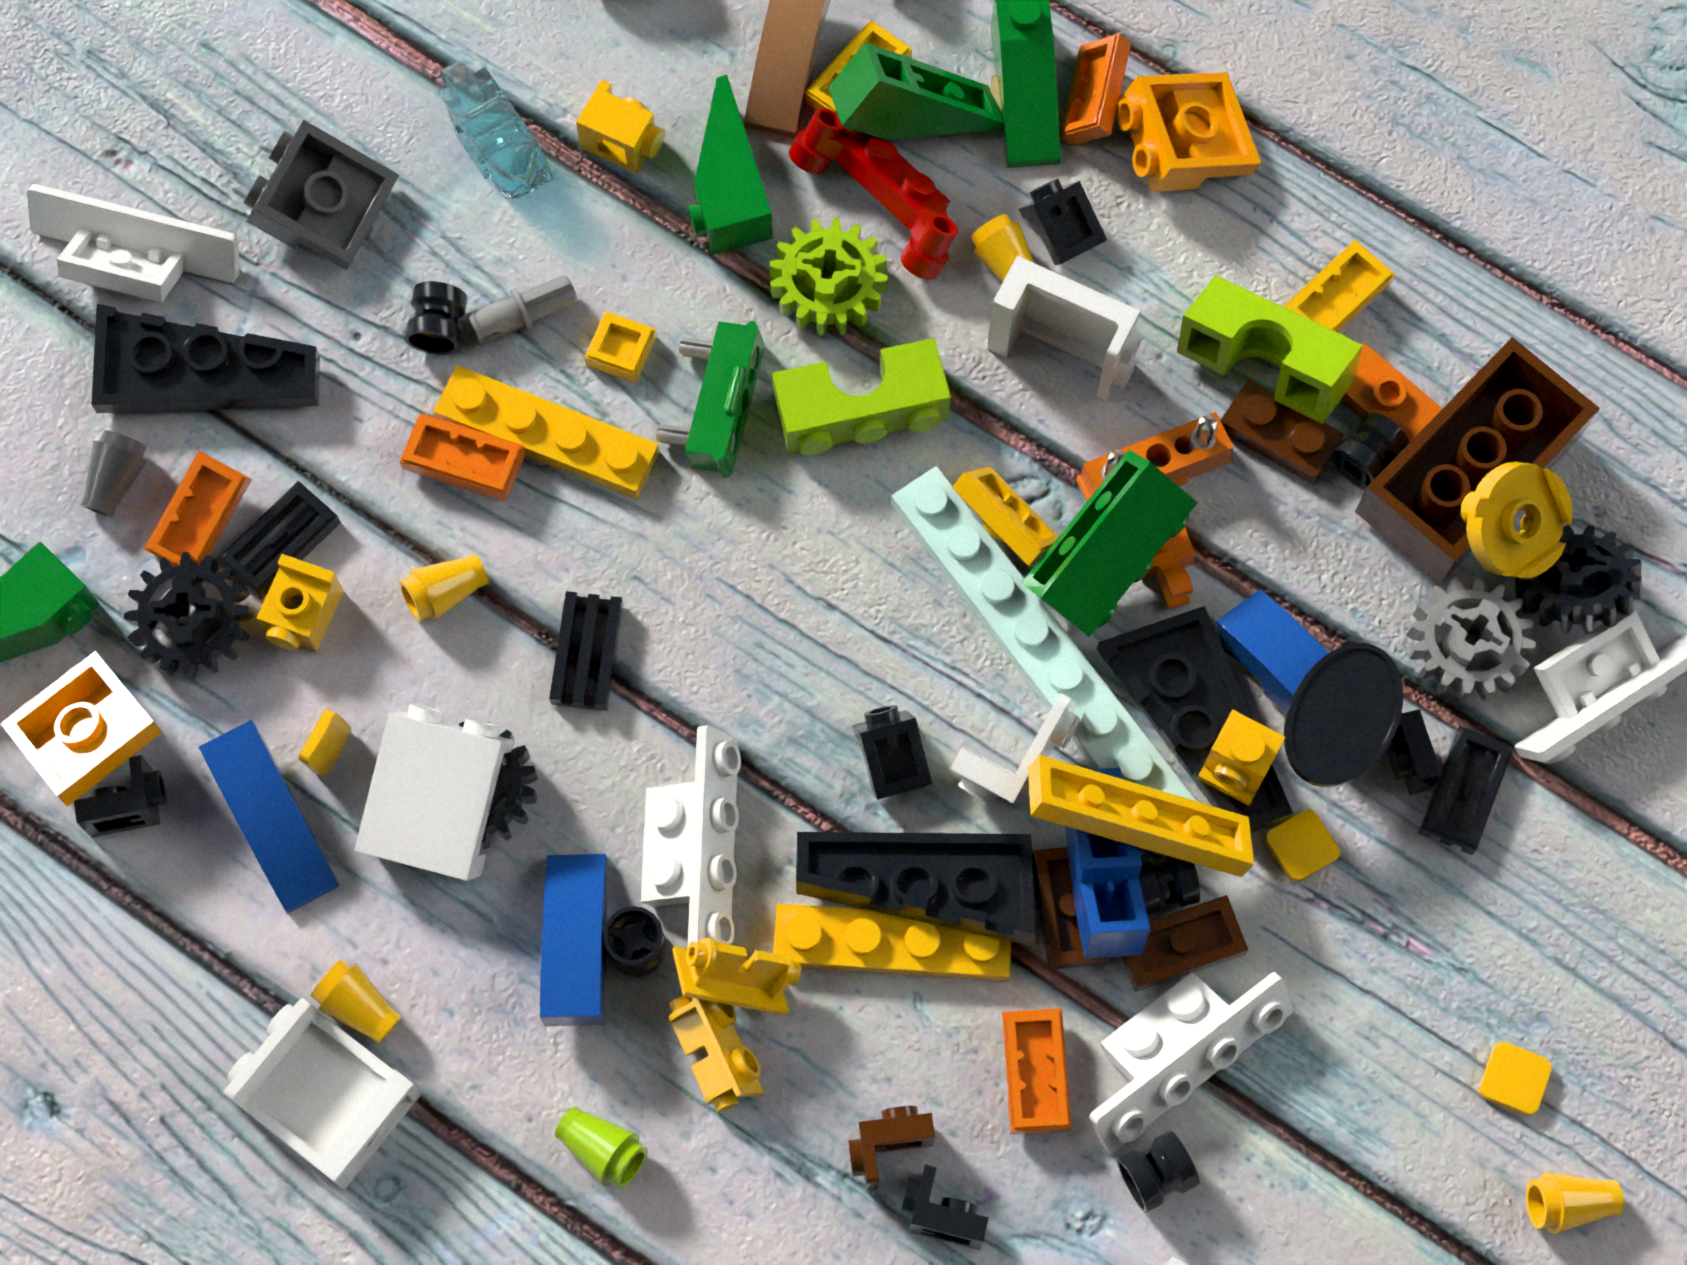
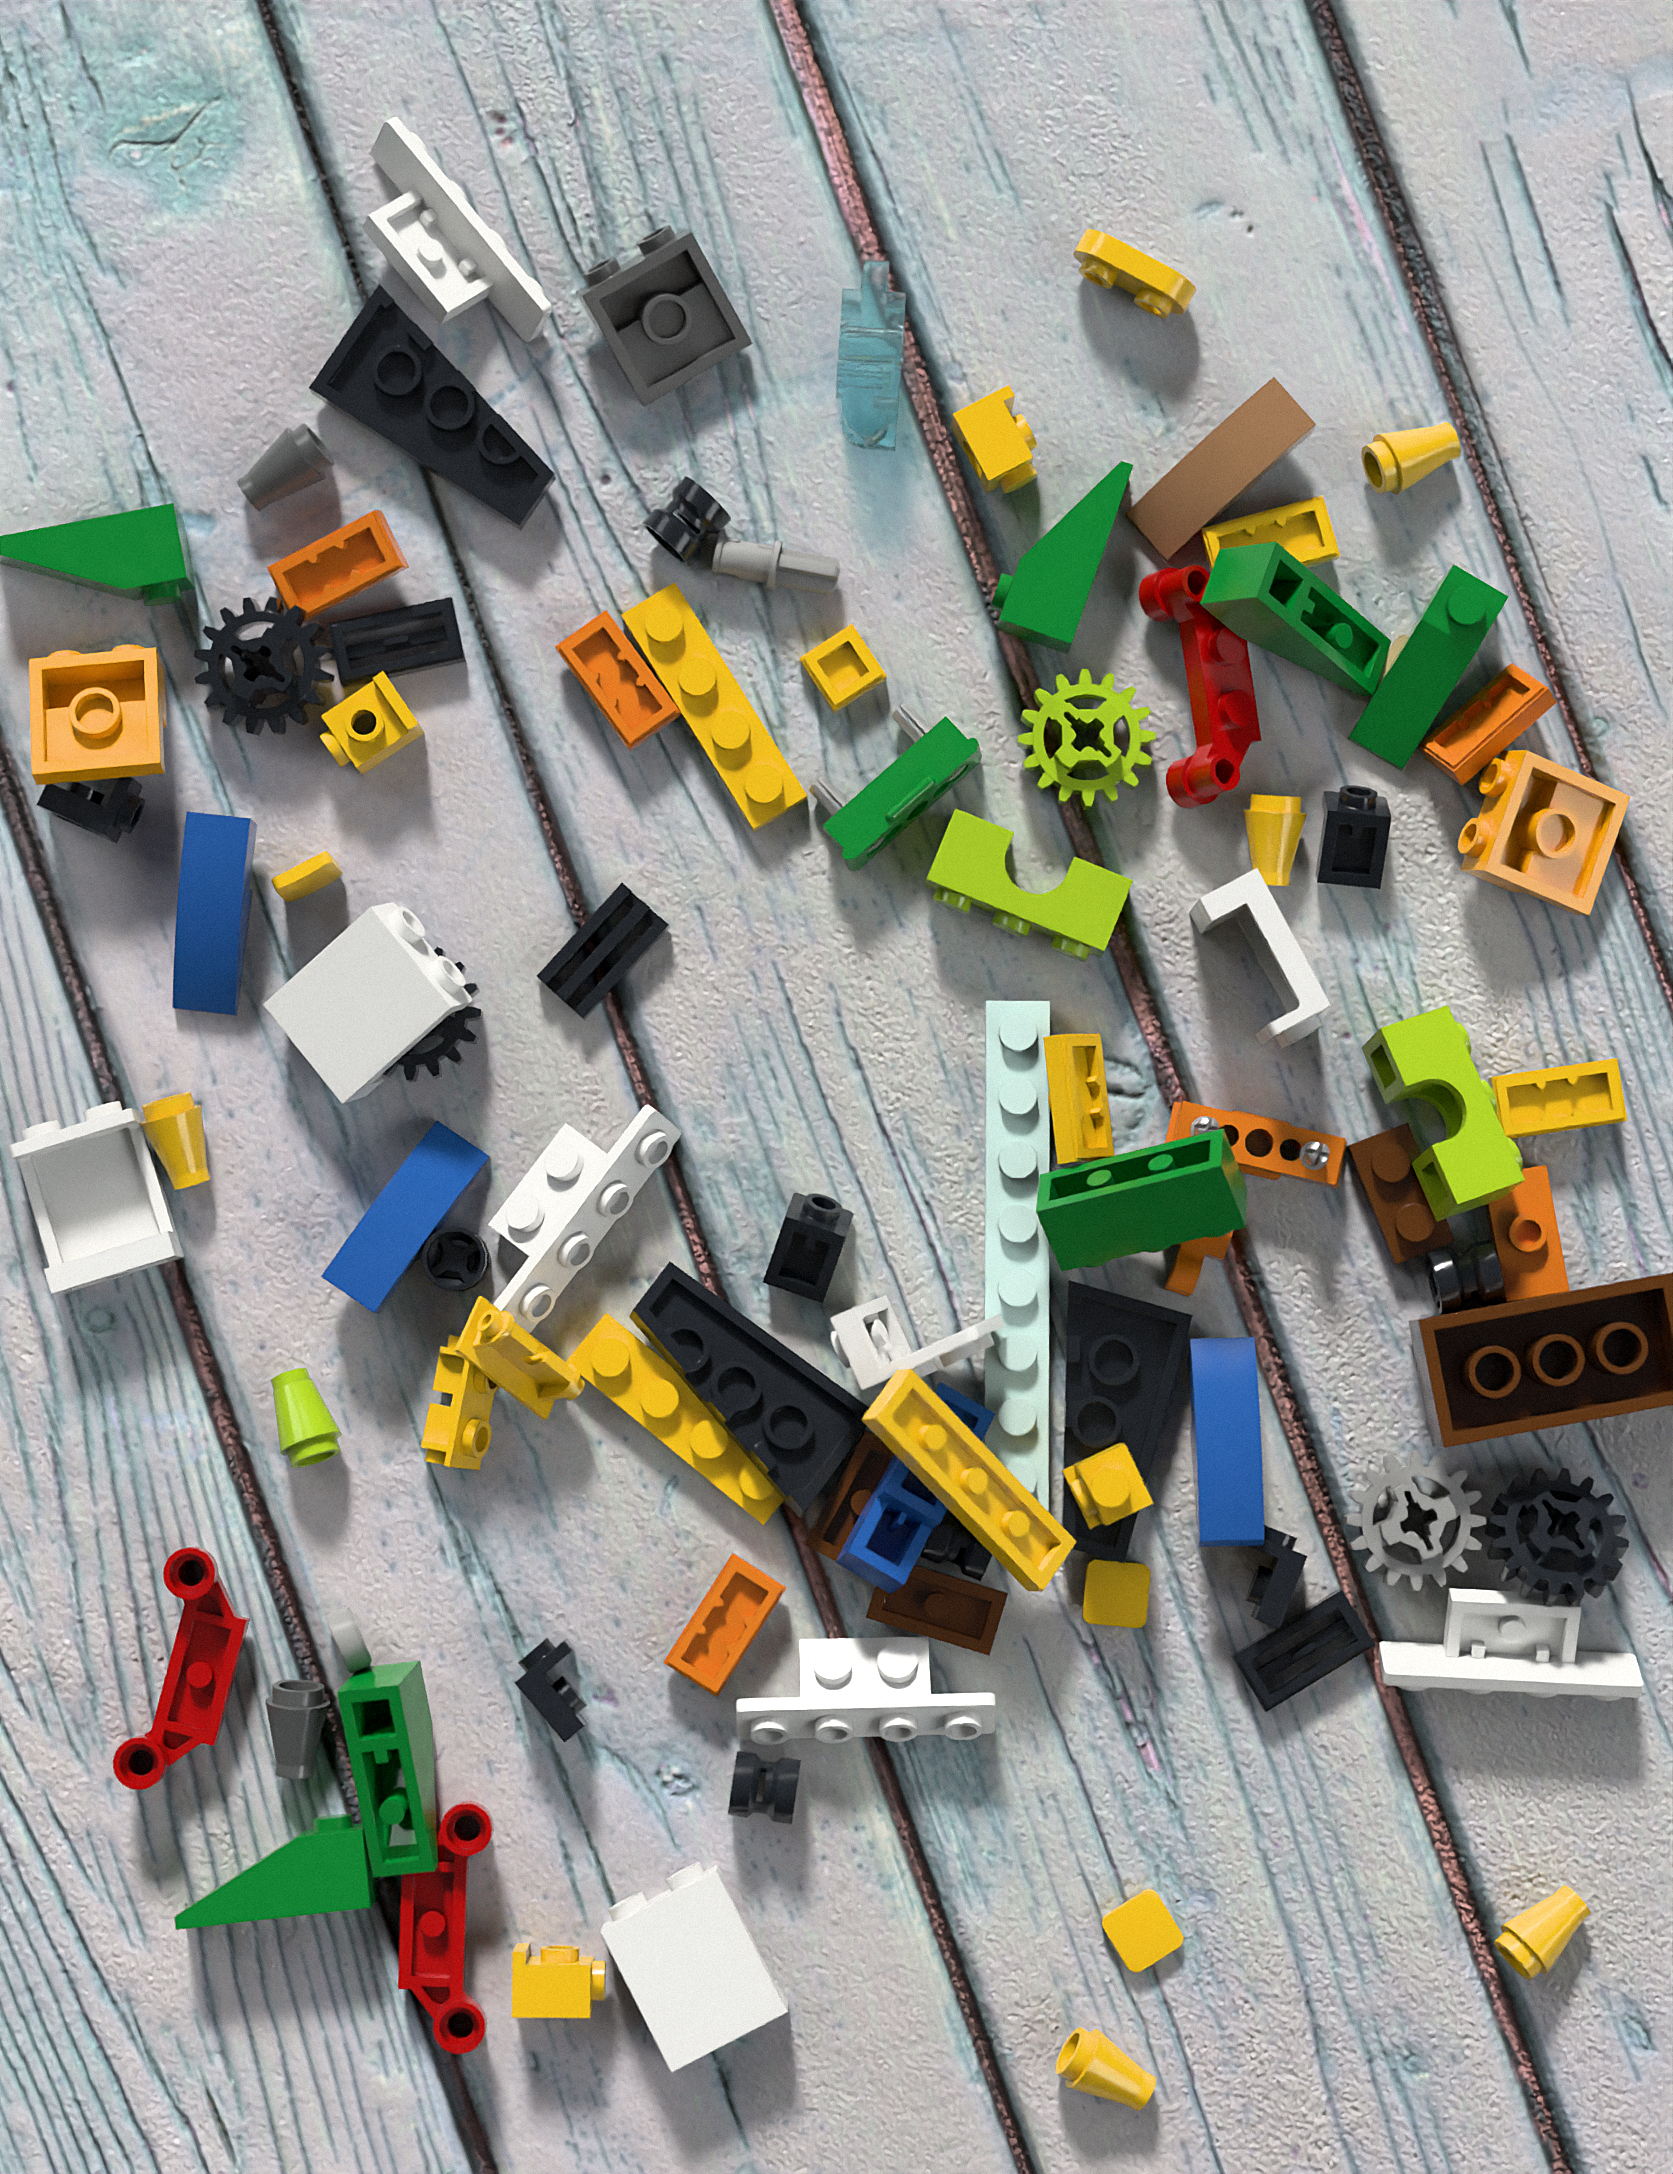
camera: 35 degrees right, 15 degrees up
(441, 586) = (513, 798): yellow cone -> none
(896, 1131) = (566, 1590): reddish brown bracket -> none
(1343, 715) = (1224, 1518): black piece -> none
(1491, 516) = (1524, 1424): yellow plate -> none

